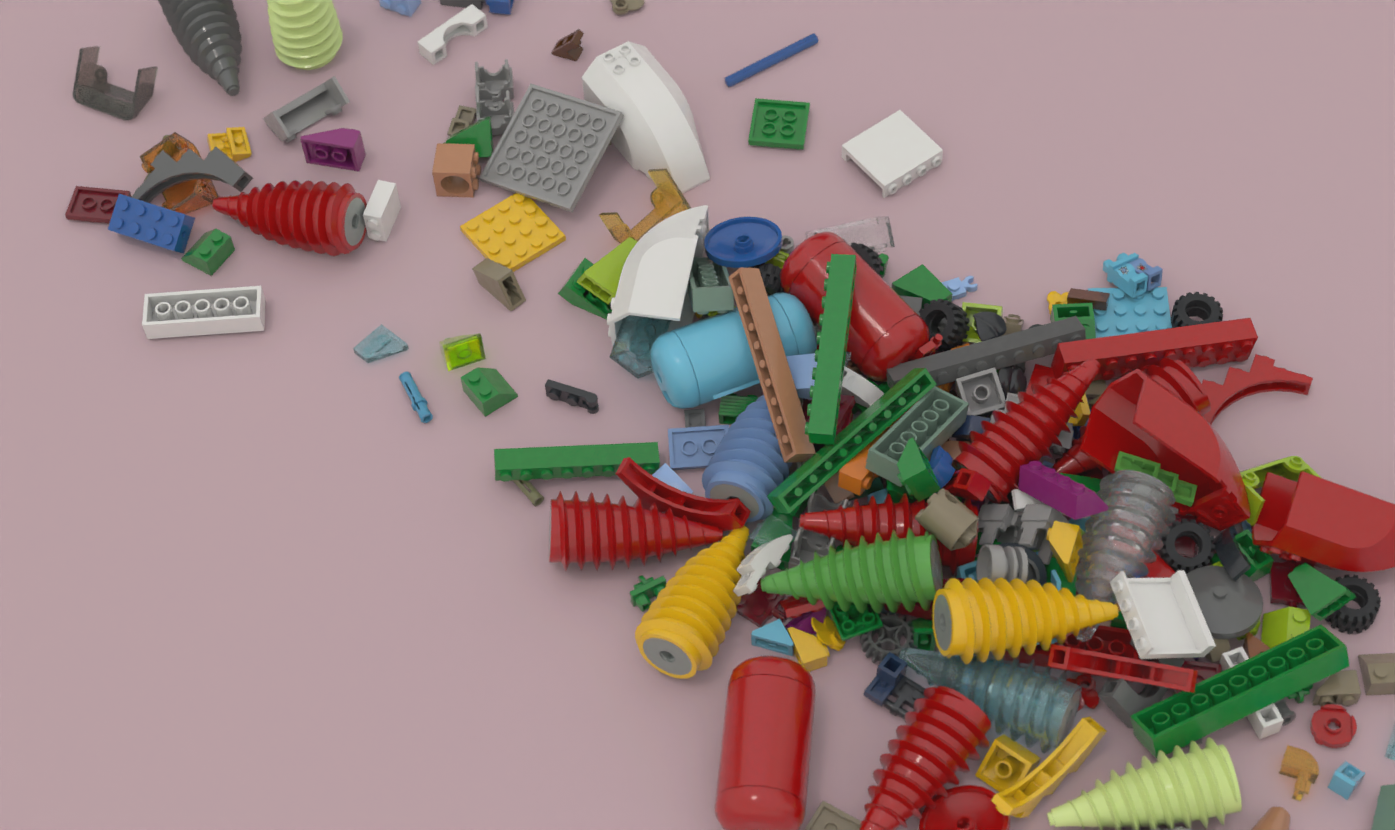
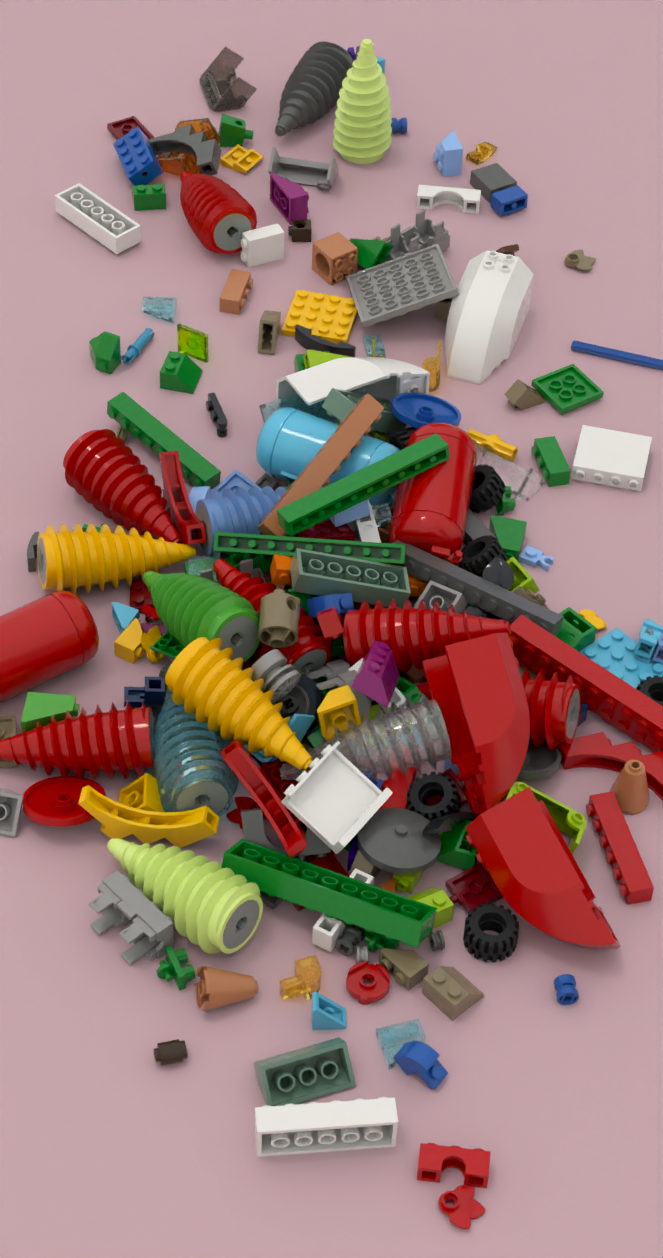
camera: 45 degrees right, 10 degrees down
(191, 124) = (233, 131): none -> green torso
(383, 168) = (300, 230): none -> dark brown brick
(405, 429) = (105, 352): none -> green slope
(417, 273) = (235, 291): none -> nougat brick
(556, 260) = (311, 342): none -> black slope
(590, 222) = (368, 345): none -> clear light blue slope
(618, 653) = (32, 552): none -> dark grey slope
(758, 561) = (169, 562): white slope -> none
(761, 161) = (523, 396): none -> dark tan slope
(800, 223) = (494, 444): none -> yellow piece
(853, 774) = (42, 706): none -> bright green slope
(858, 196) = (551, 461): none -> green brick
(916, 472) = (305, 579): green slope -> none
(1098, 299) = (604, 630): reddish brown slope -> none
(1183, 491) = (458, 732): bright green slope -> none
(1274, 405) = (632, 788): none -> nougat cone
(1303, 711) = (361, 954): none -> light grey bush
(1318, 591) = (470, 896): green slope -> none
(1326, 454) = (619, 848): none -> red brick

